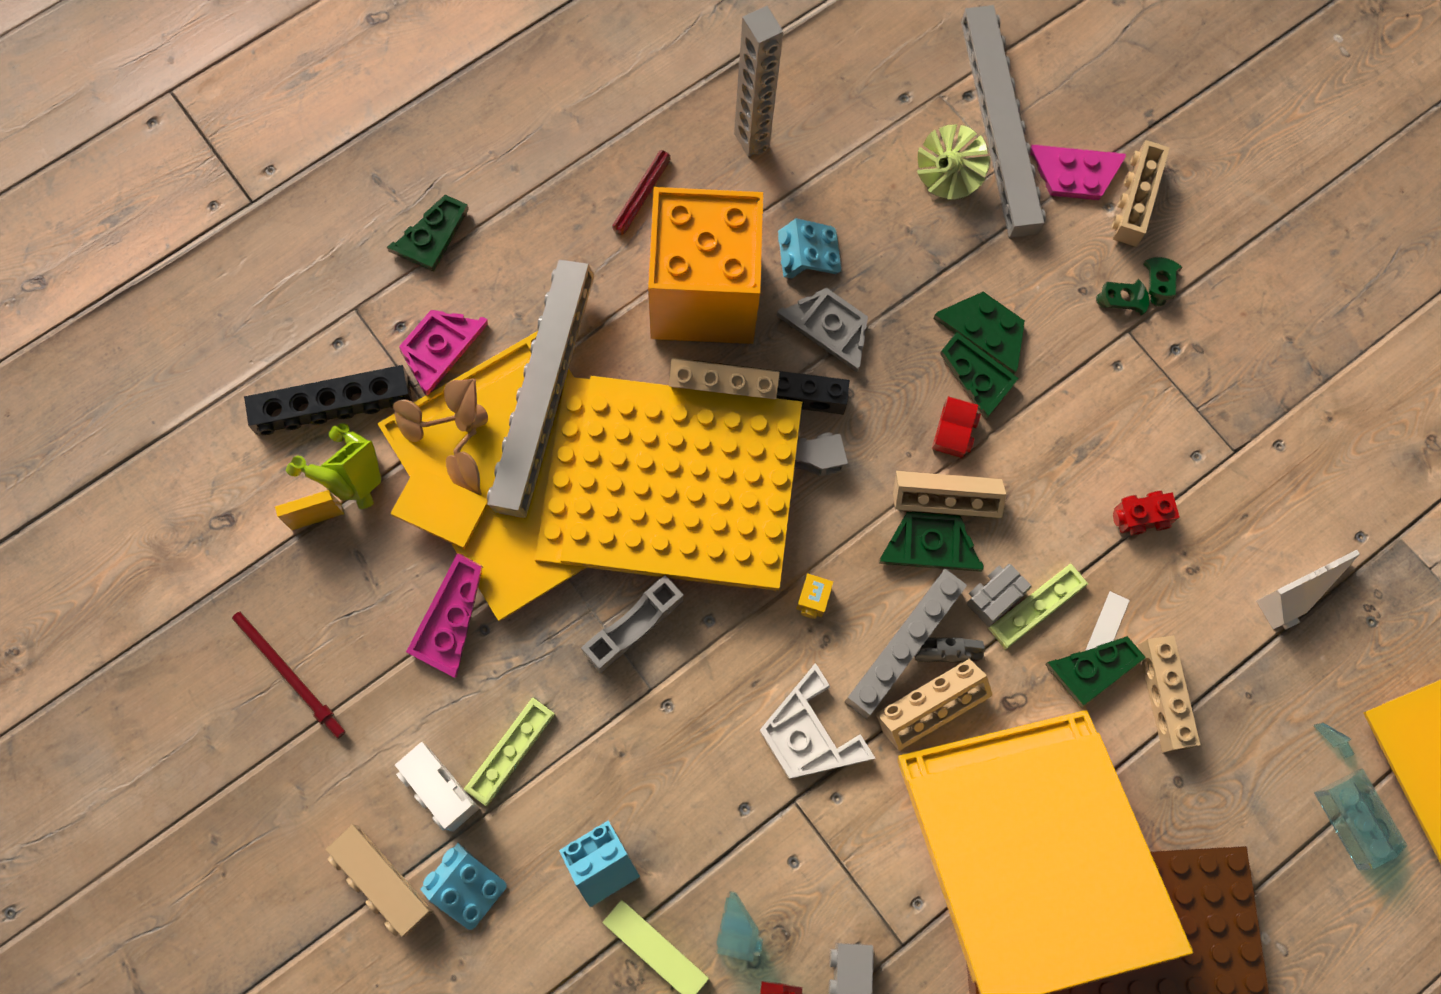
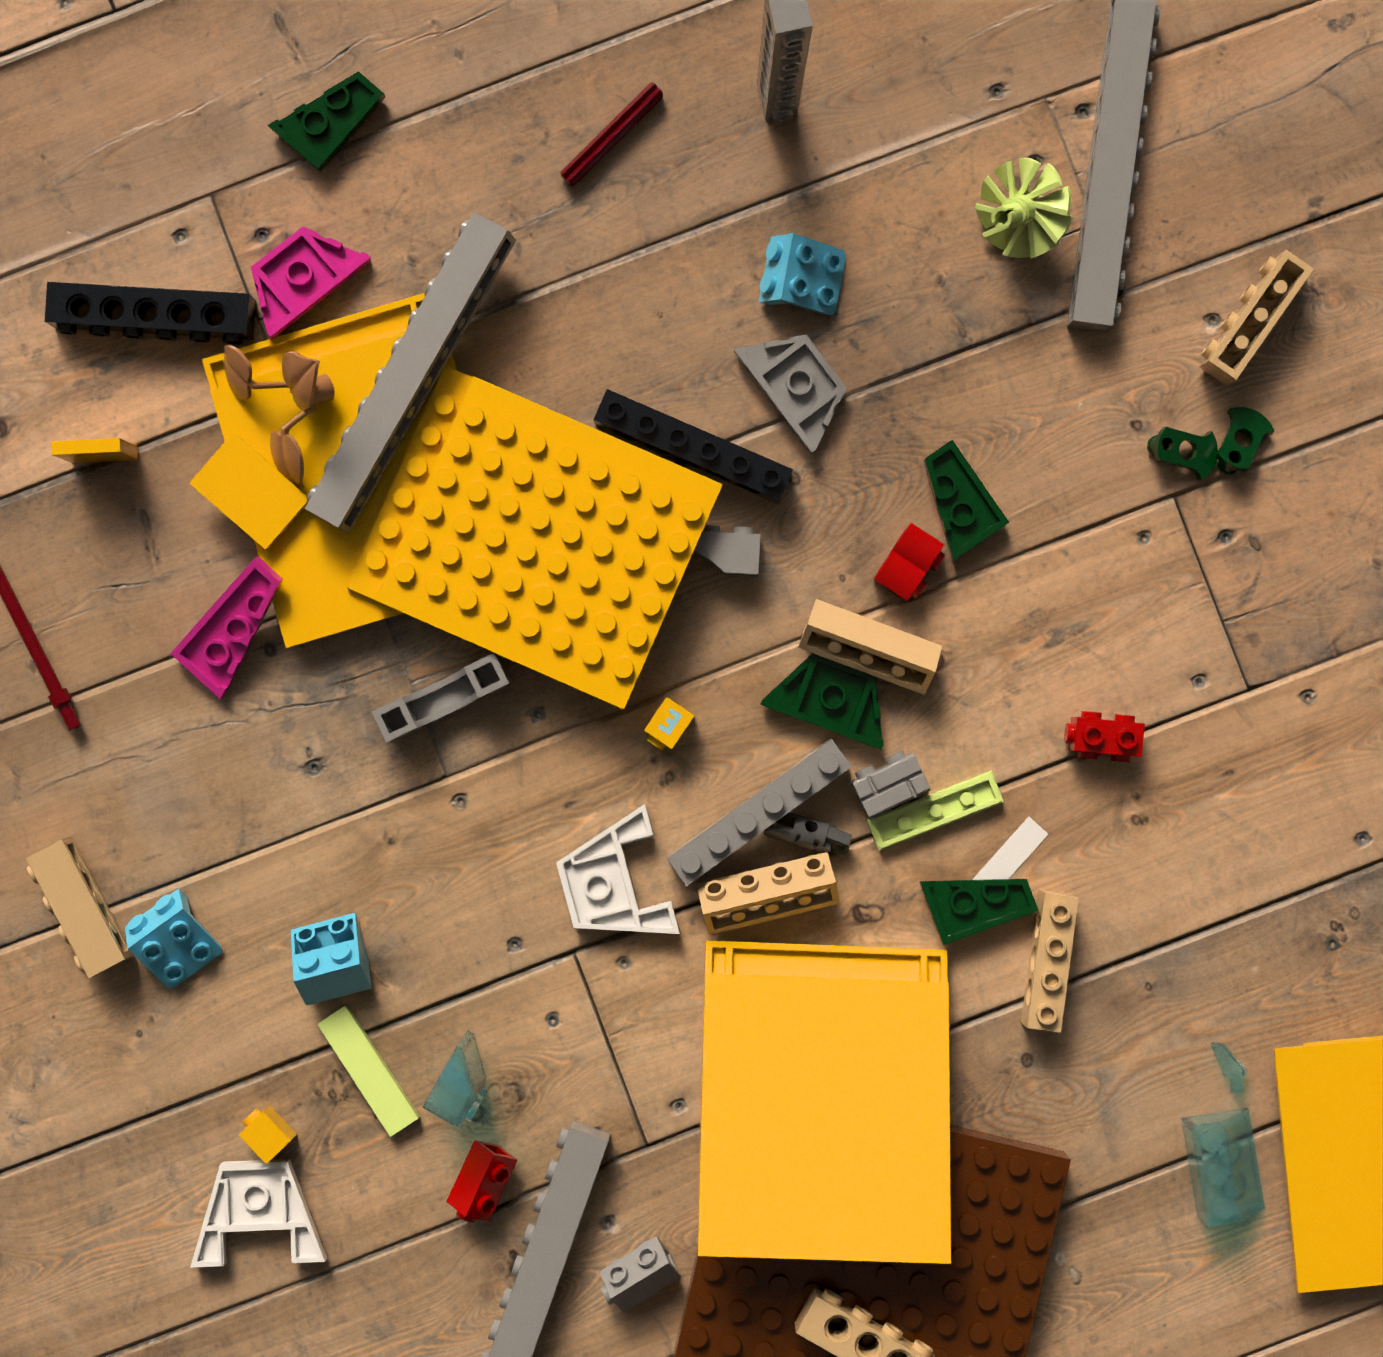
camera: 25 degrees right, 15 degrees up
(349, 472) = (153, 416): lime torso -> none
(436, 788) = (167, 822): white wedge -> none
(509, 752) = (263, 802): yellowish green tile -> none
(705, 264) = (648, 276): light orange piece -> none
(723, 378) = (633, 430): tan brick -> none
(987, 326) = (995, 442): dark green wing -> none
(1076, 171) = (1187, 259): dark pink wing -> none
(1298, 597) = (1250, 891): white wedge -> none

